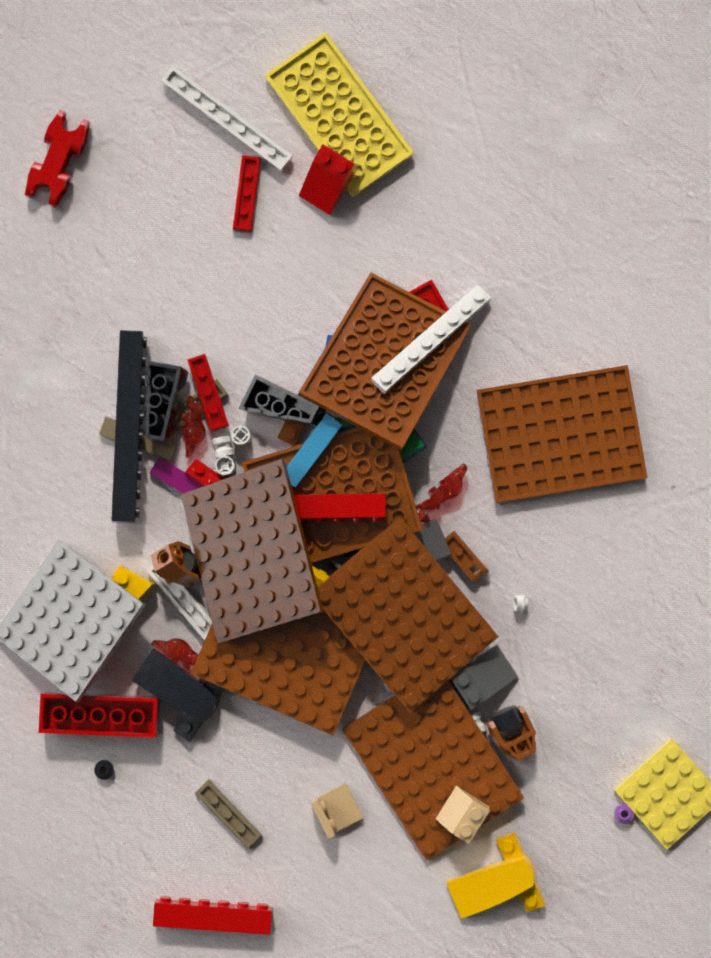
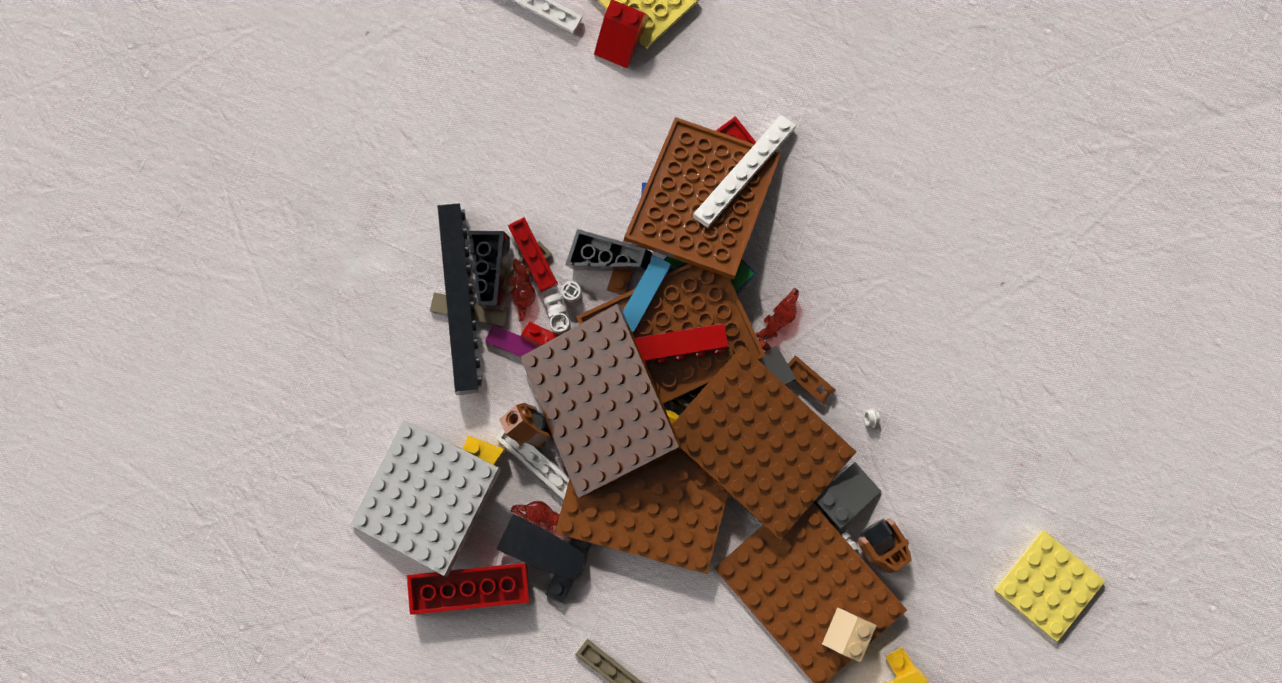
camera: 15 degrees left, 5 degrees down
(62, 146) = (356, 37): red piece -> none
(104, 763) = (485, 640): black plate -> none
(246, 193) = (542, 59): red tile -> none
(336, 810) = (721, 650): tan bracket -> none
(561, 434) = (885, 246): dark orange plate -> none
(617, 813) = (1002, 612): medium lavender plate -> none

